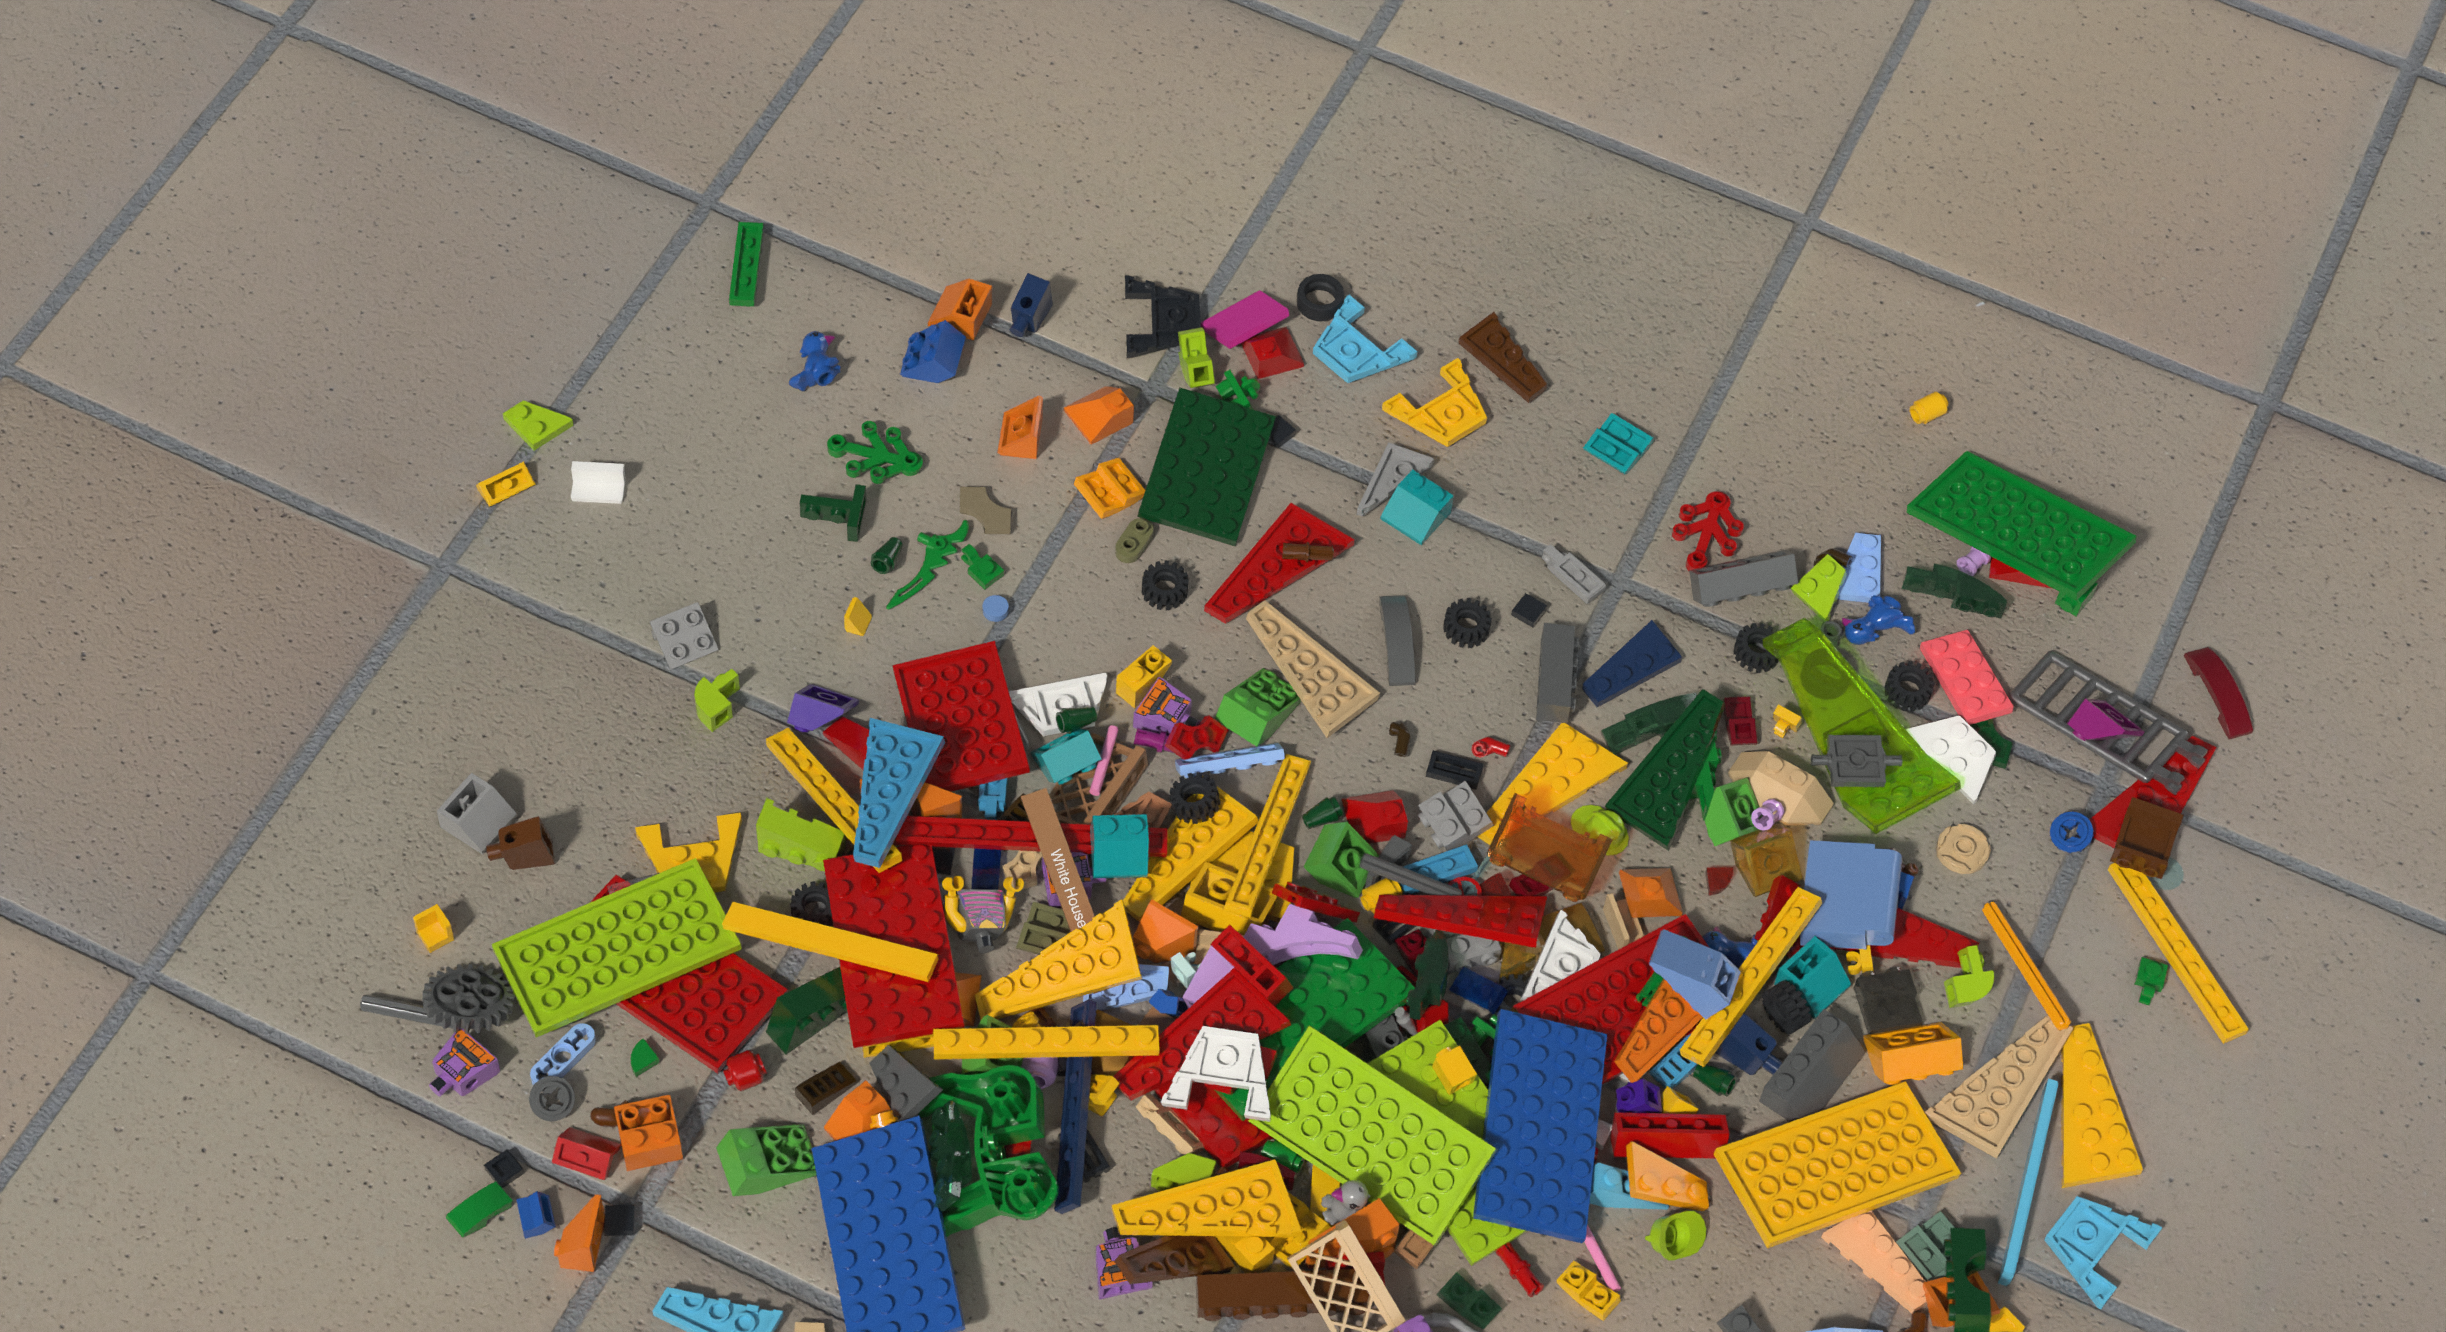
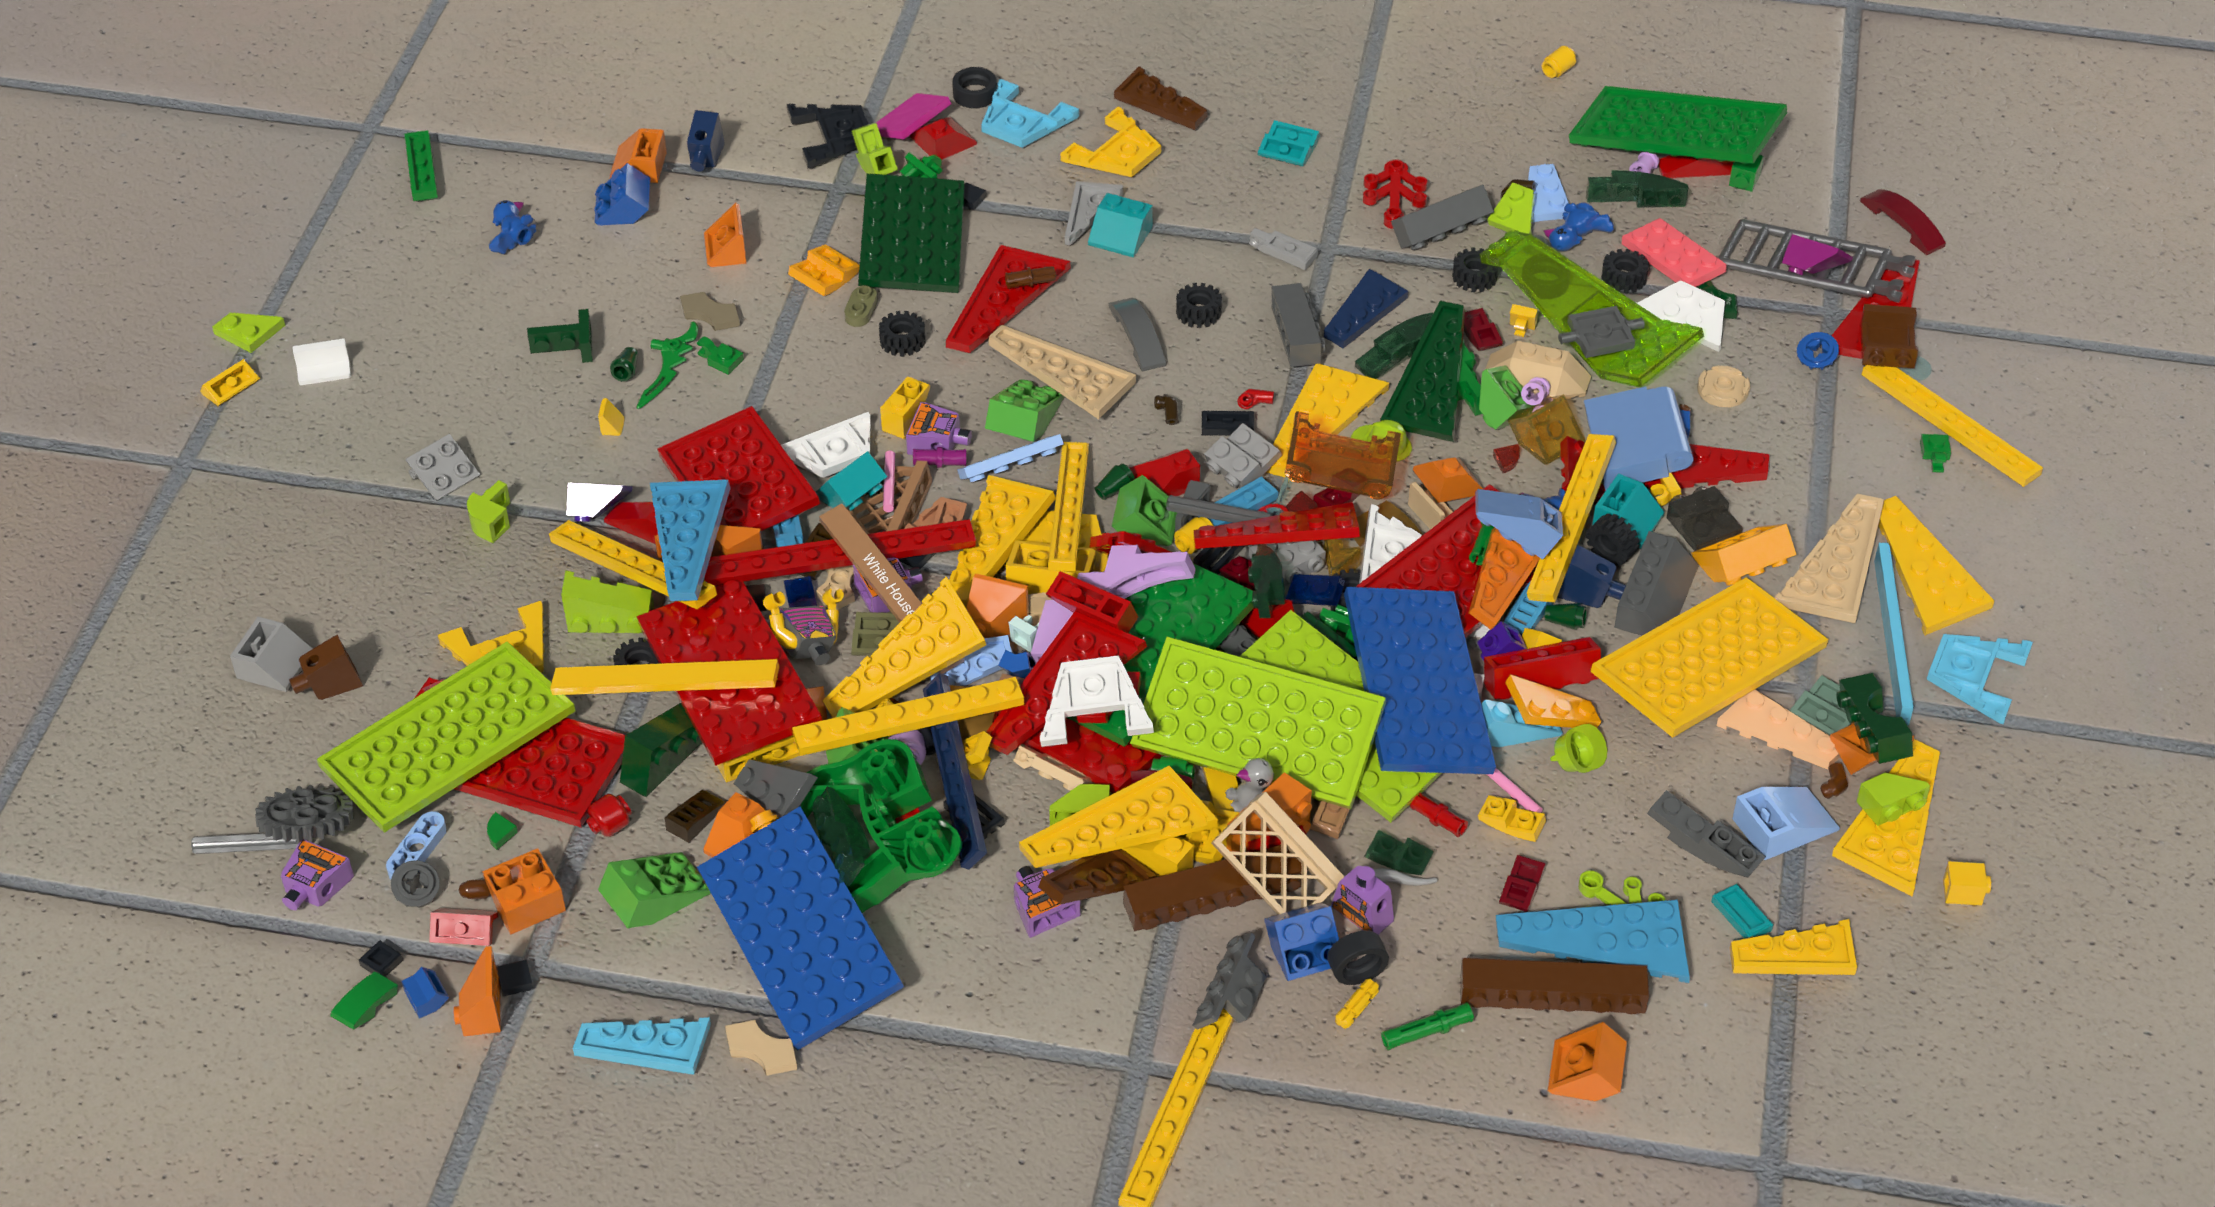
camera: 10 degrees left, 10 degrees down
(433, 928) = (252, 762): yellow panel -> none
(877, 454) = (619, 287): green plant -> none
(995, 608) = (743, 385): medium blue tile -> none
(1073, 719) = (848, 451): dark green cone -> none
(1101, 413) = (799, 213): orange slope -> none
(1119, 846) = (928, 538): teal slope -> none
(1187, 739) = (966, 446): red tile -> none
(1197, 809) = (977, 493): black tyre -> none
(1405, 1021) = (1253, 625): light grey piece -> none
(1453, 1069) = (1319, 644): yellow brick -> none
(1529, 610) = (1252, 285): black tile -> none
(1973, 983) = (1775, 482): lime brick -> none
(2026, 966) = (1821, 461): light orange axle -> none

